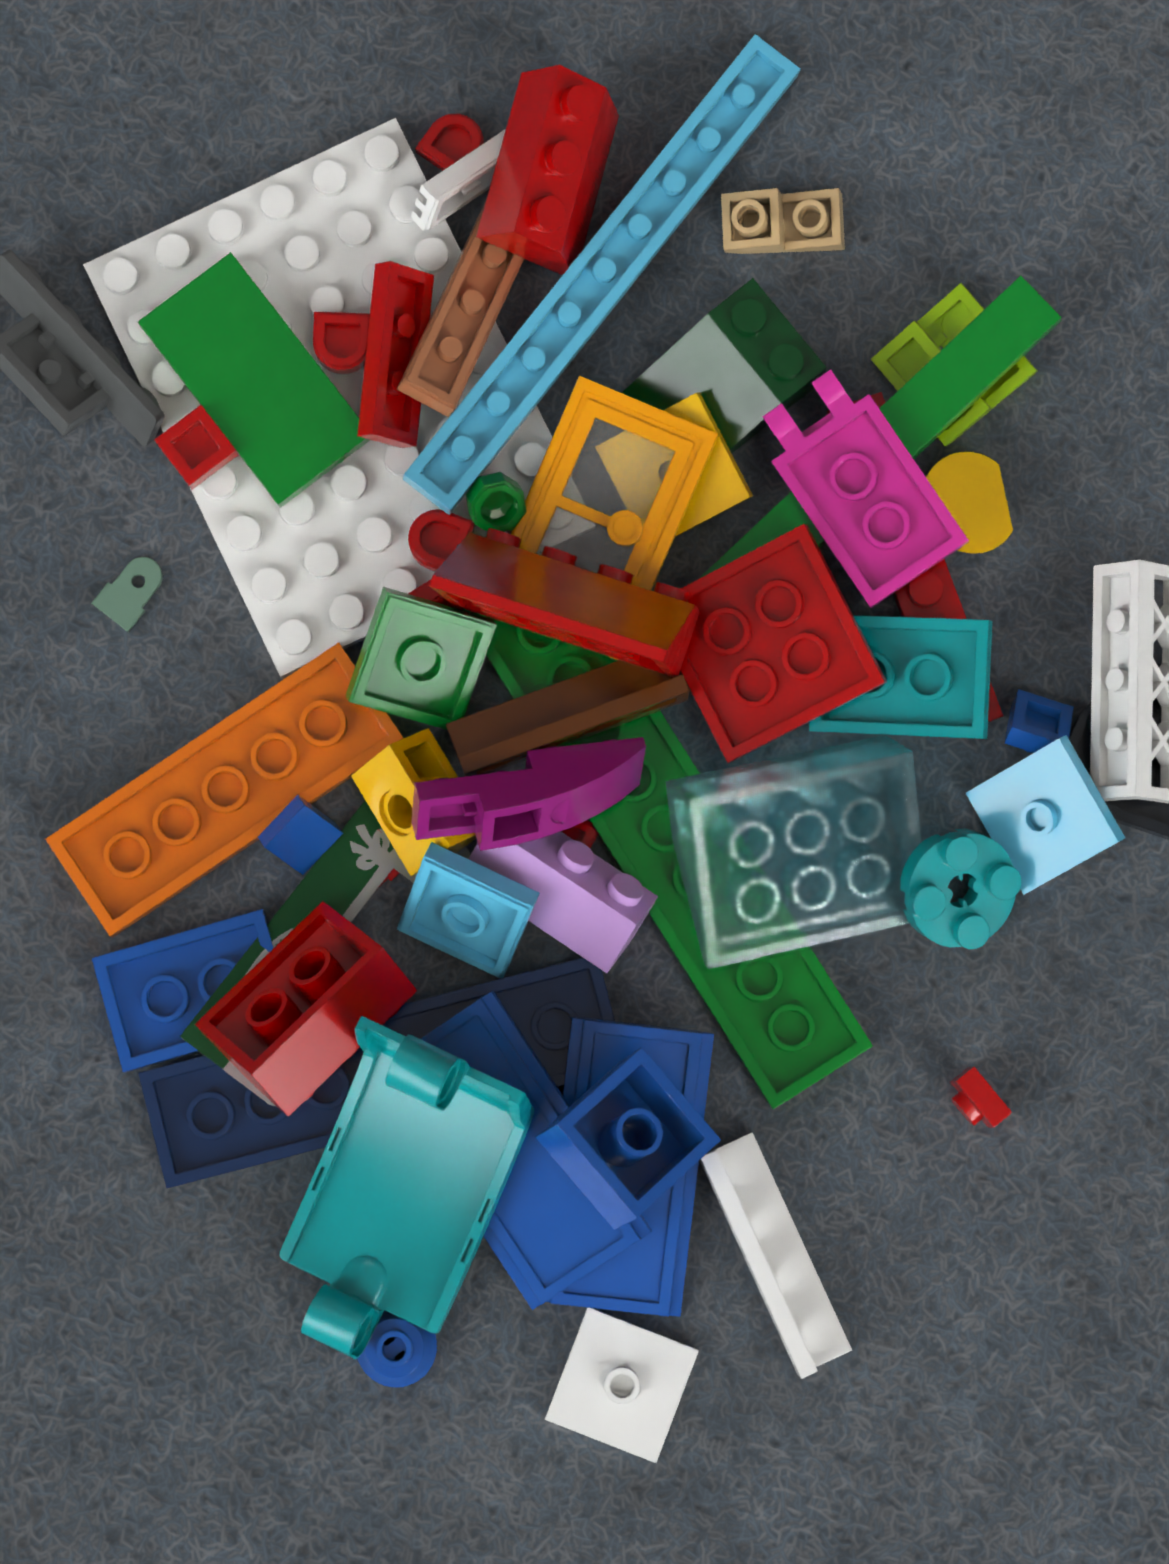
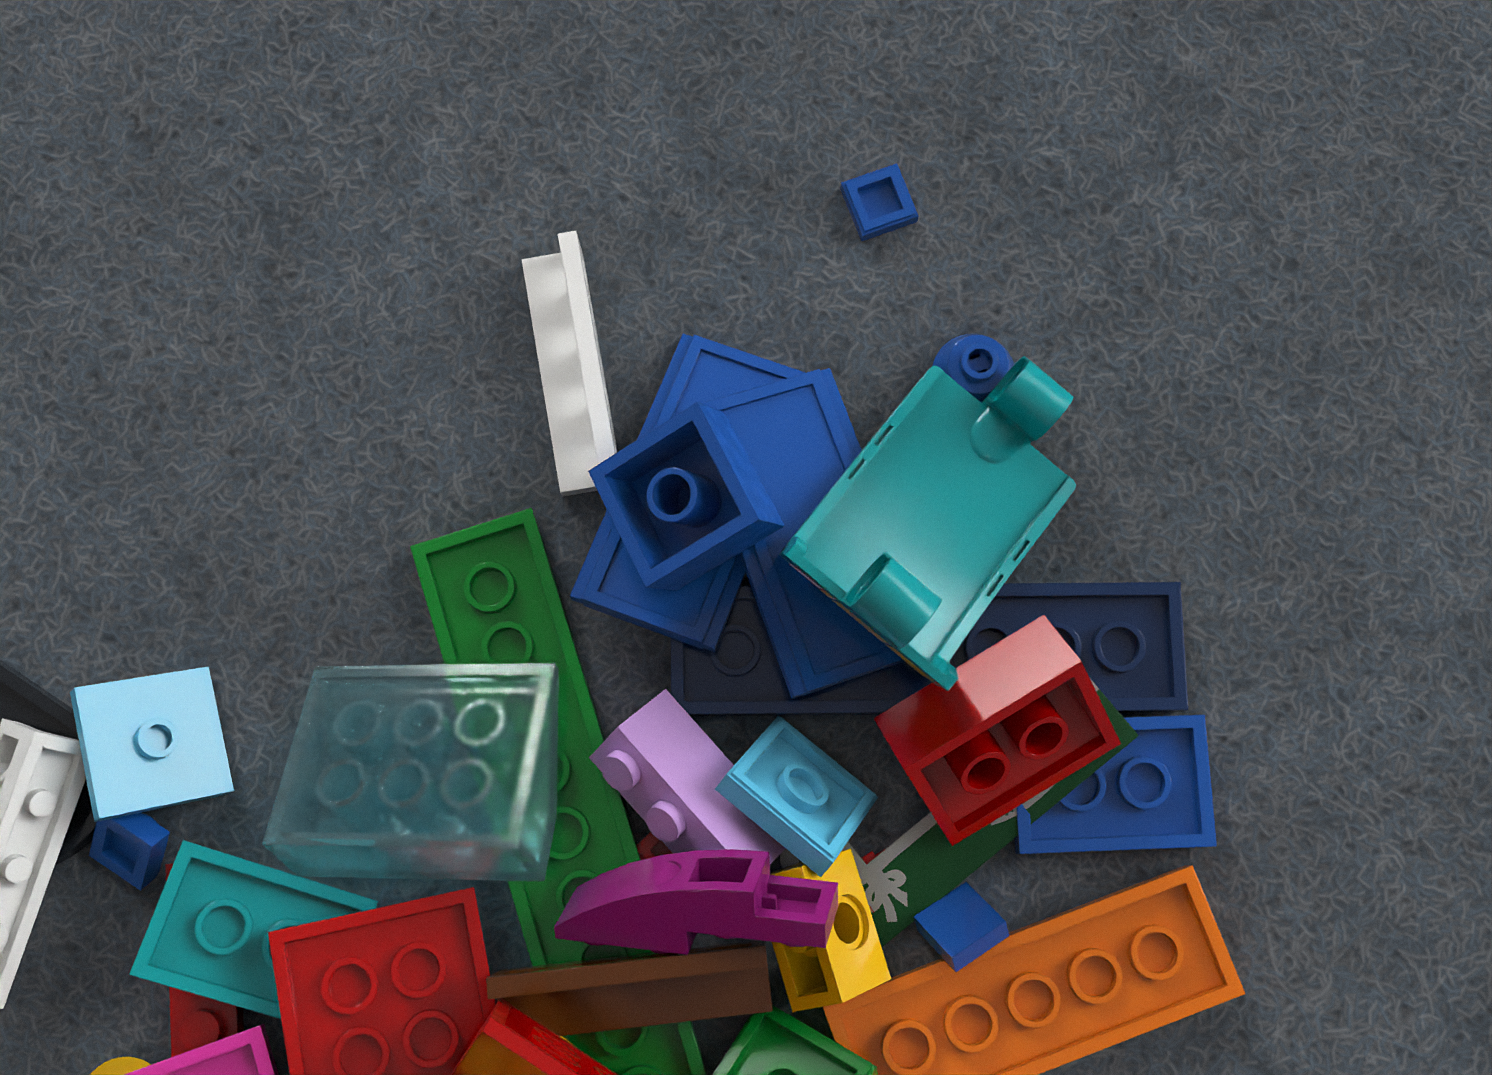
camera: 165 degrees left, 5 degrees down
(525, 1499) = (879, 202): none -> blue tile
(621, 1384) = (757, 284): white plate -> none
(977, 1099) = (319, 467): red plate -> none
(990, 893) = (238, 678): teal plate -> none

